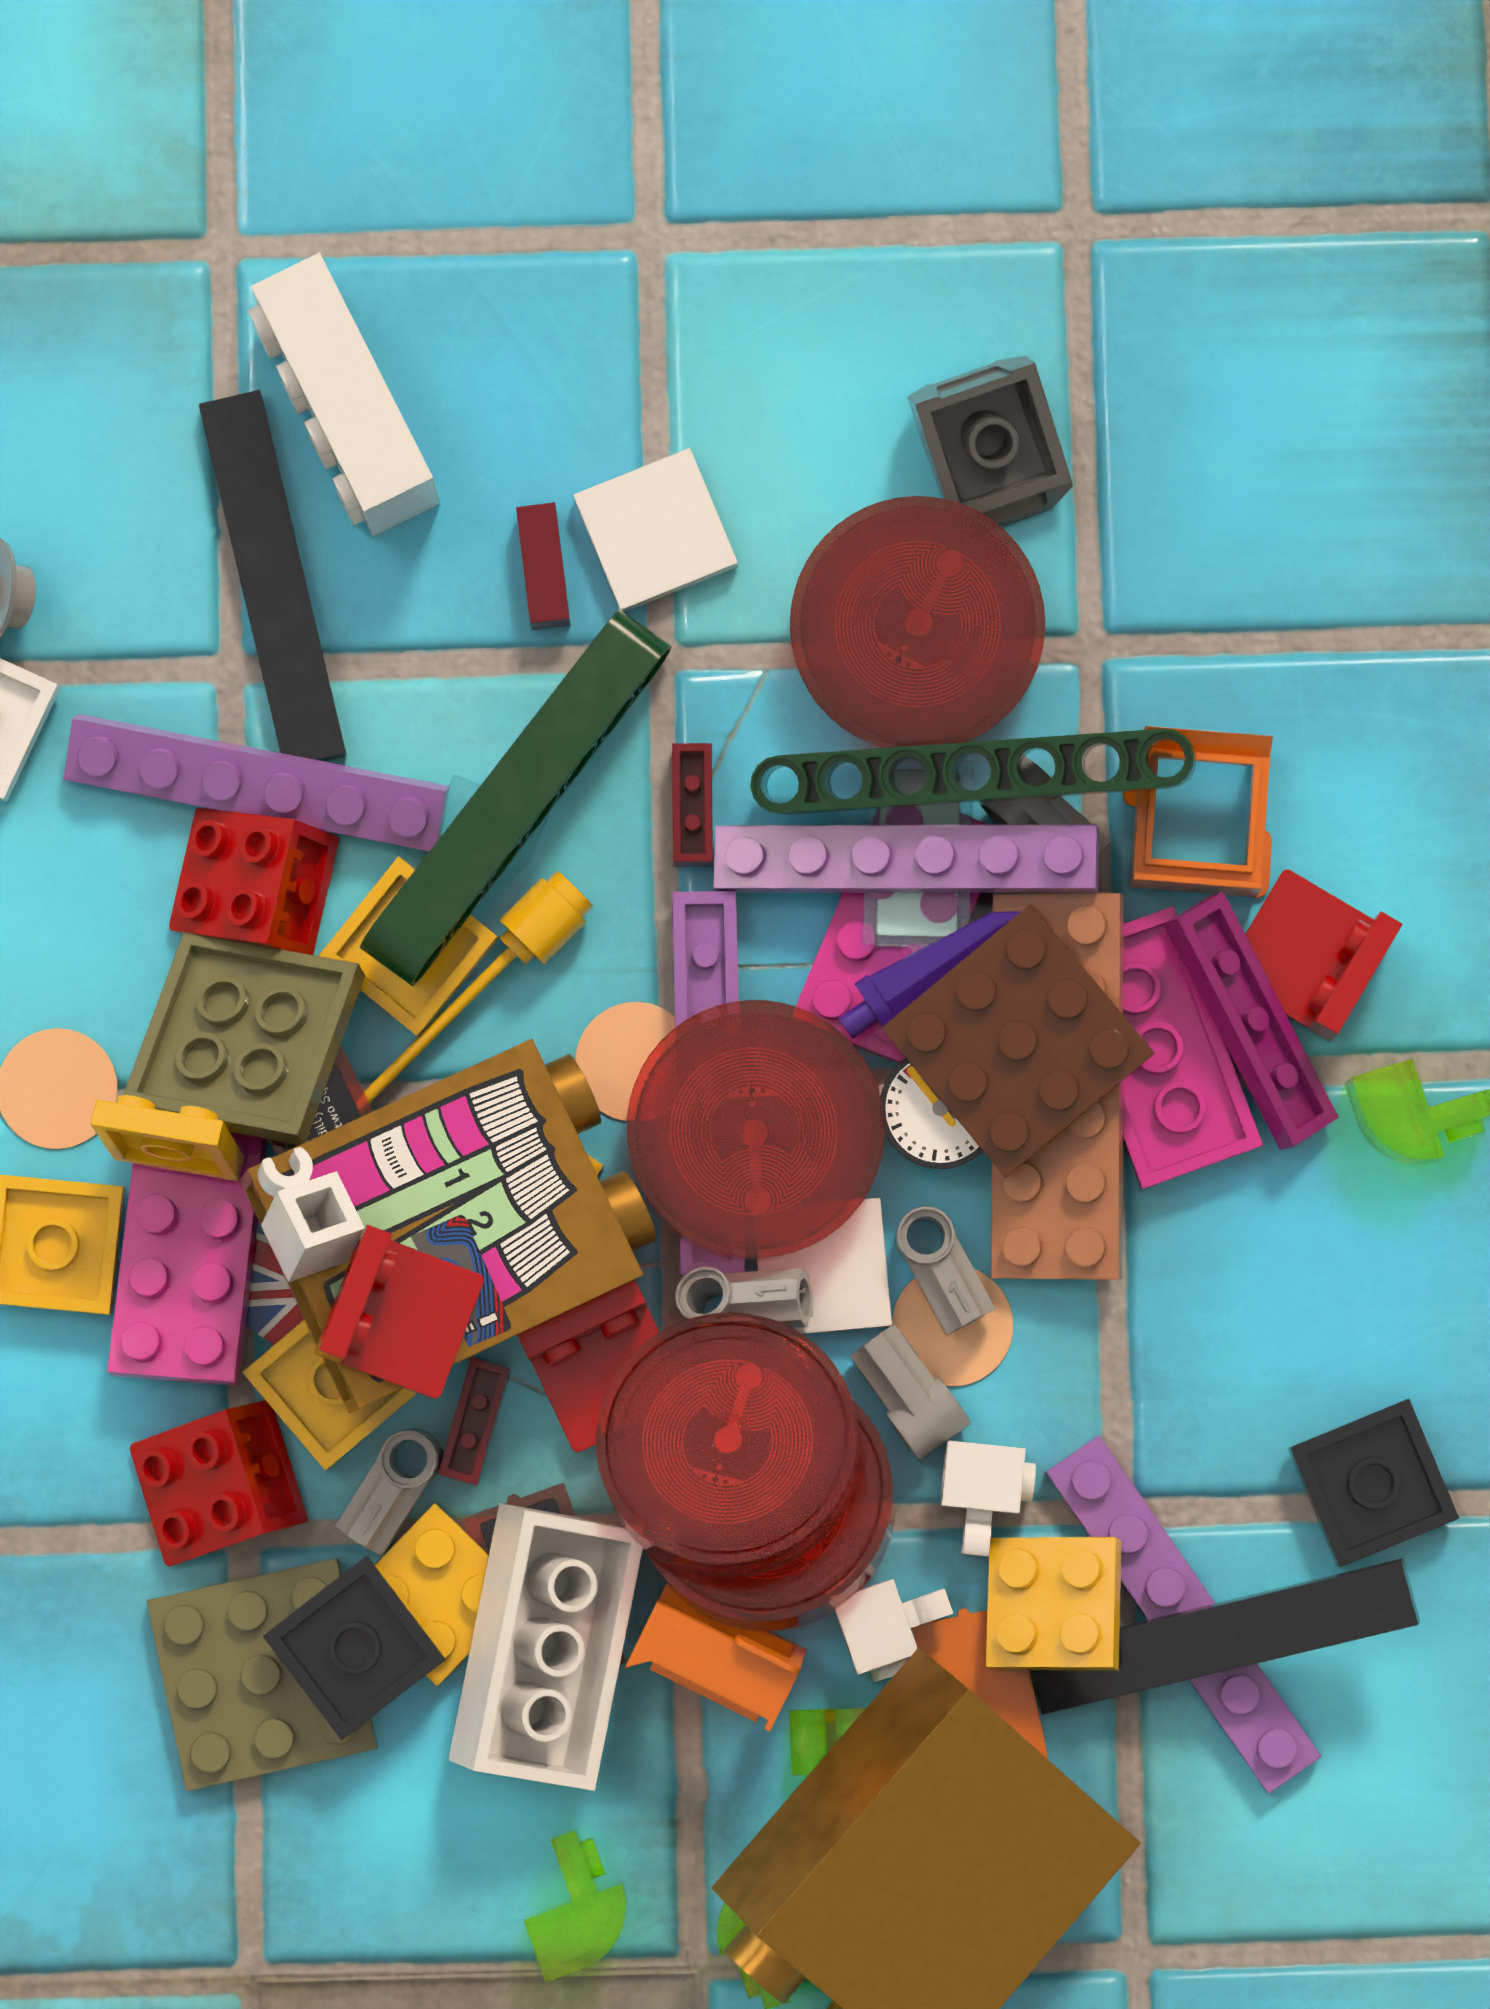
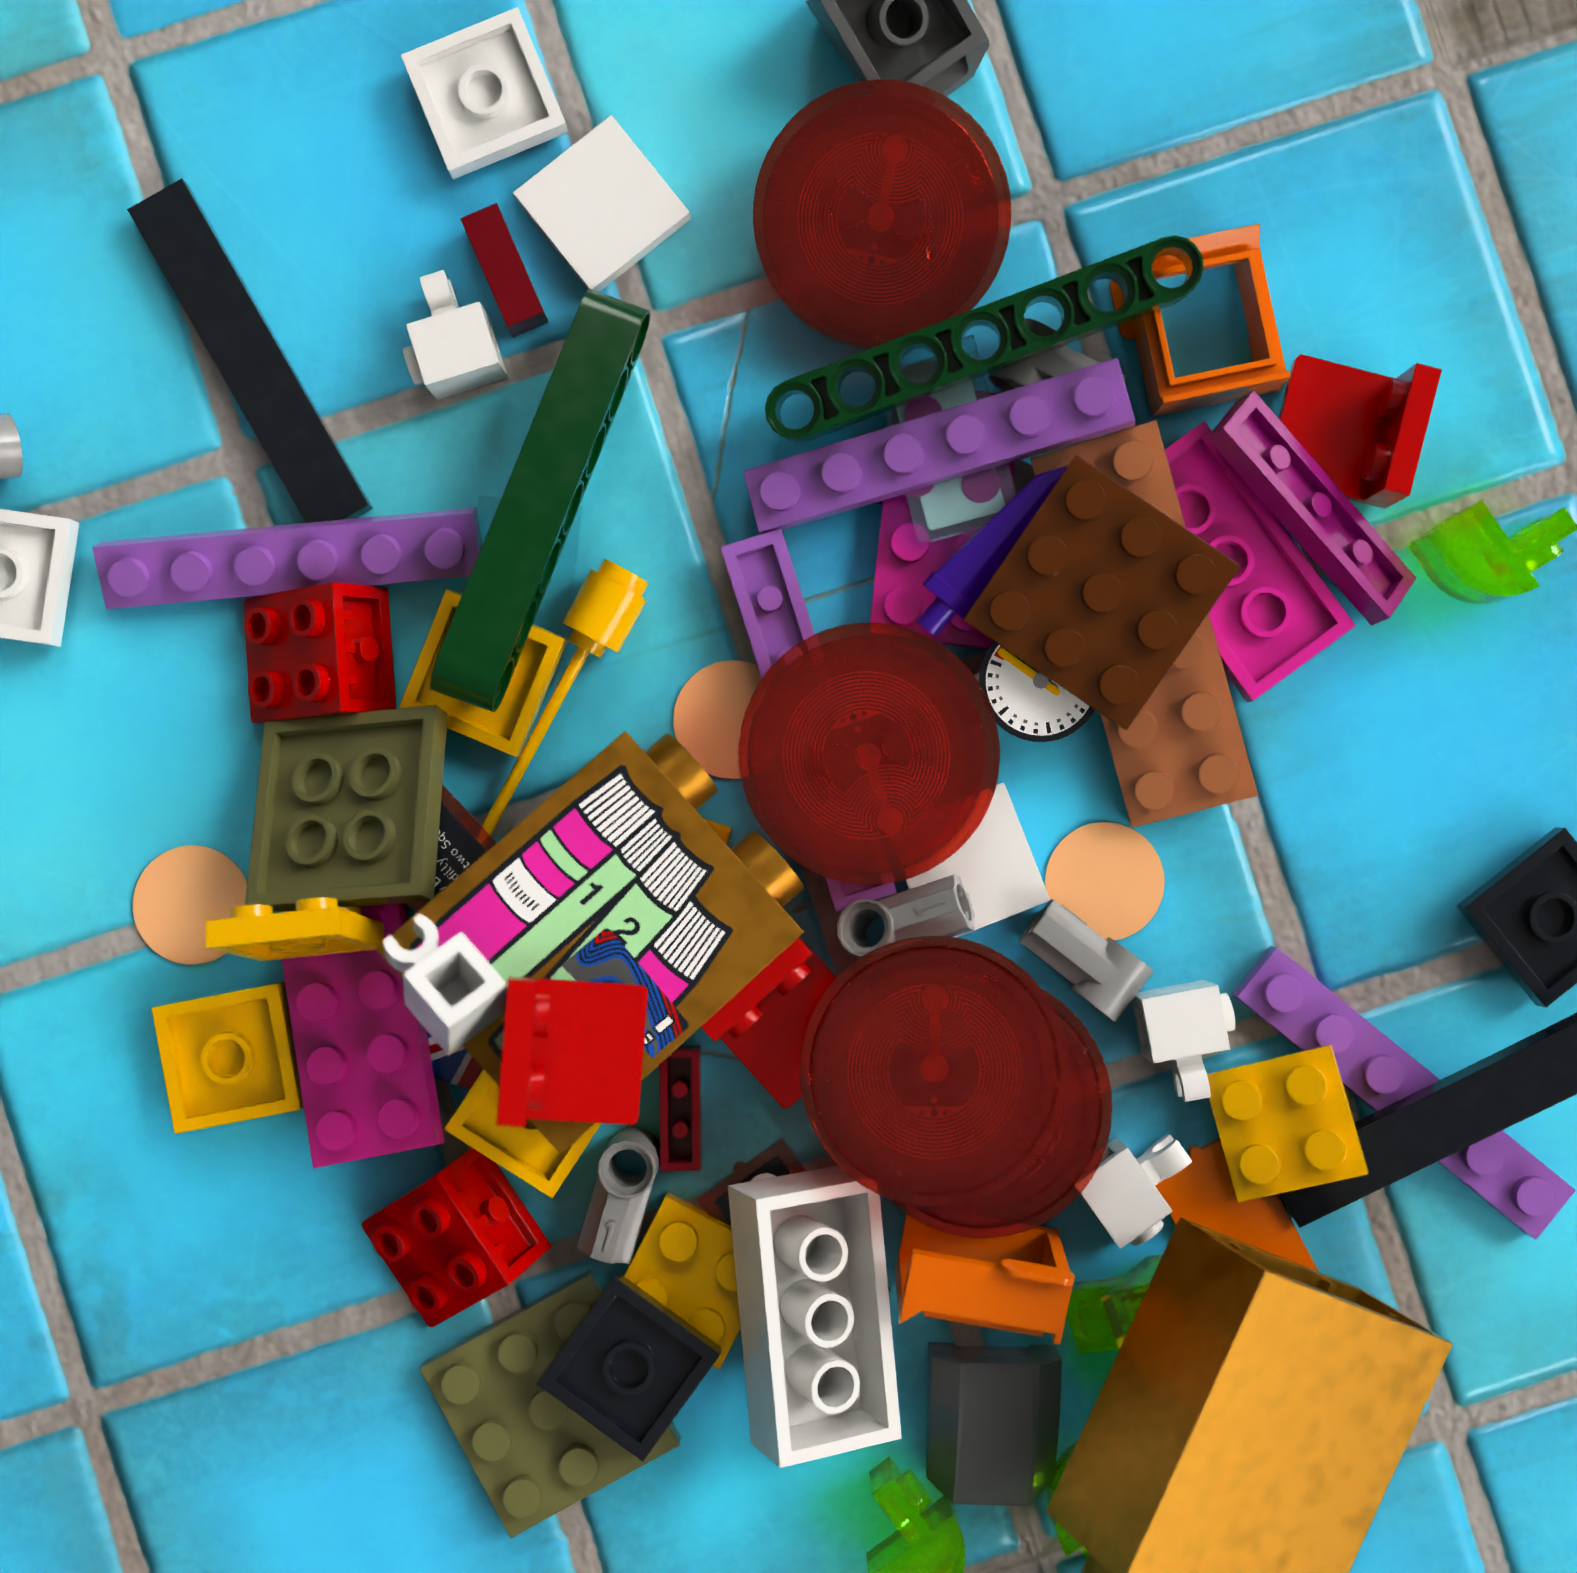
camera: 10 degrees left, 5 degrees up
(341, 386) = (254, 152): white brick -> none
(472, 627) = (454, 345): none -> white brick
(574, 392) = (484, 93): none -> white plate
(685, 1817) = (992, 1422): none -> dark grey slope
(692, 804) = (714, 458): dark red piece -> none
(946, 1275) = (1087, 838): light grey piece -> none

